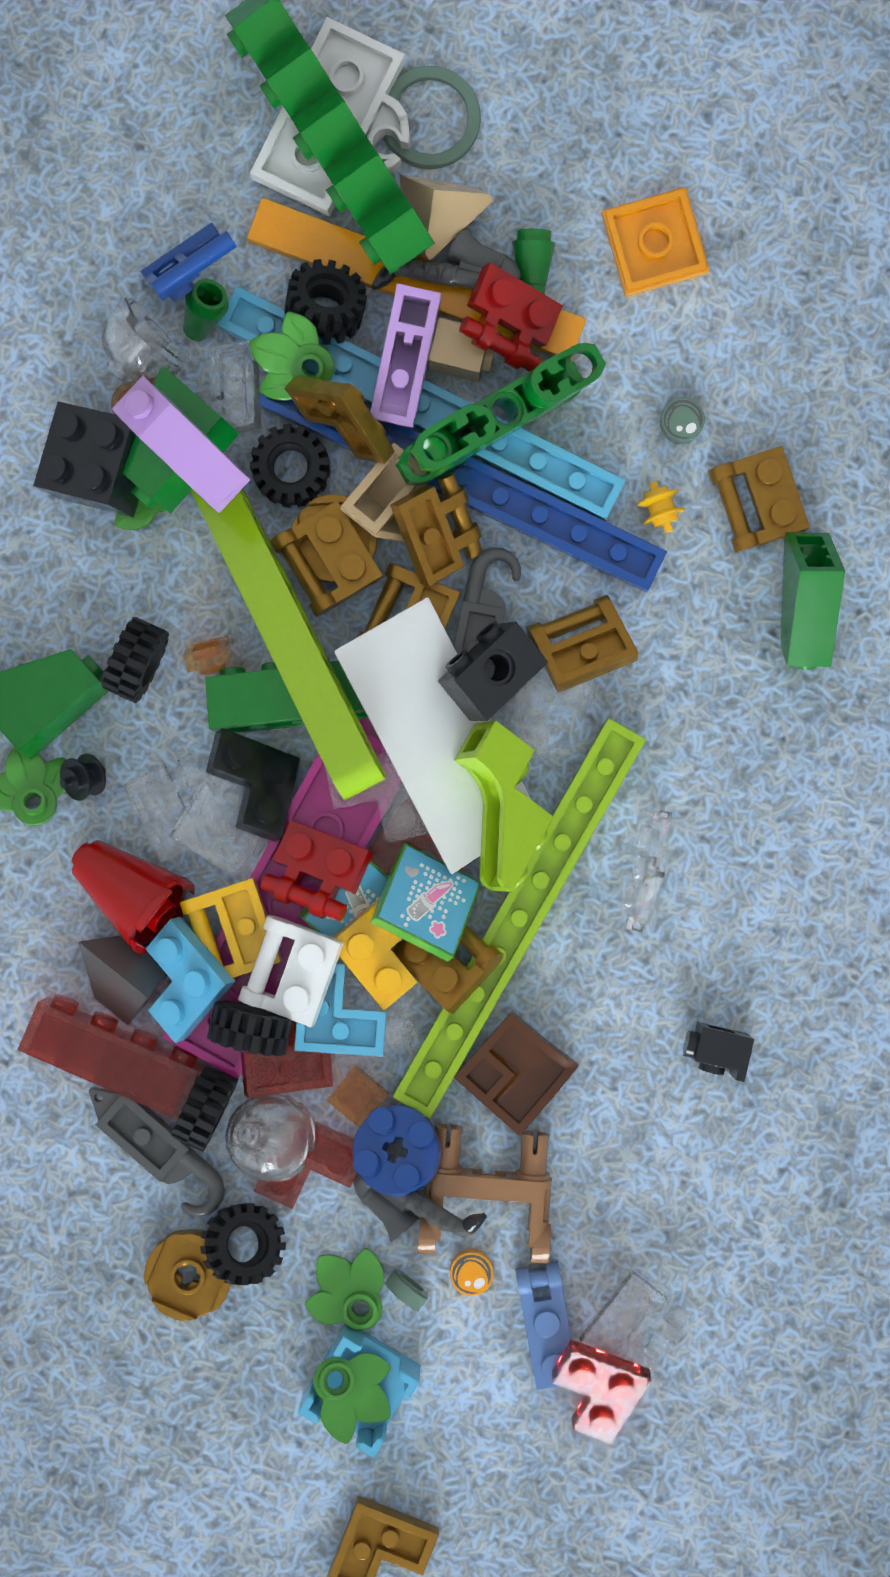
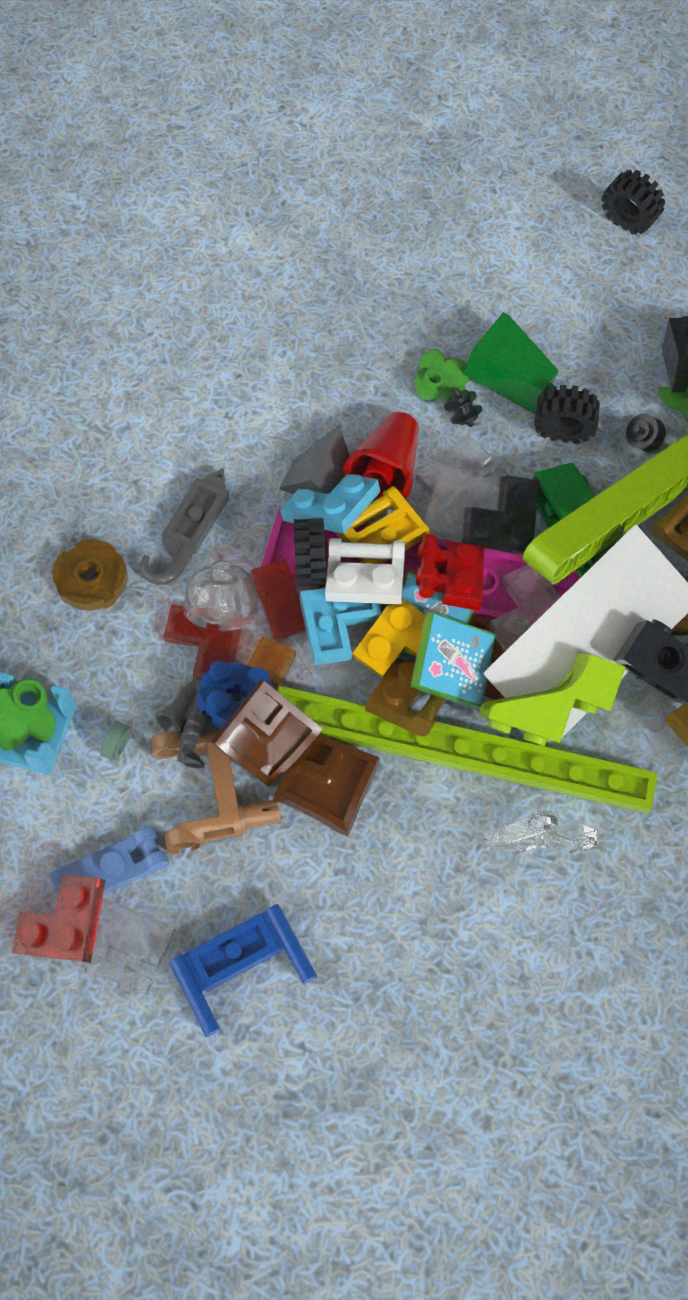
camera: 70 degrees right, 25 degrees down
(110, 1055) = (252, 479): clear red brick -> none
(180, 569) = (645, 432): none -> black wheel
(204, 1107) = (233, 542): black tyre -> none
(208, 655) = (589, 465): clear orange plate -> none
(268, 1250) = (143, 586): black tyre -> none
(343, 1285) = (106, 694): bright green plate -> none
(457, 1133) = (266, 733): none -> plate
(471, 1272) = (142, 793): light orange tile -> none
(676, 1217) = (234, 954): none -> blue plate
(719, 1050) = (400, 948): black brick -> none

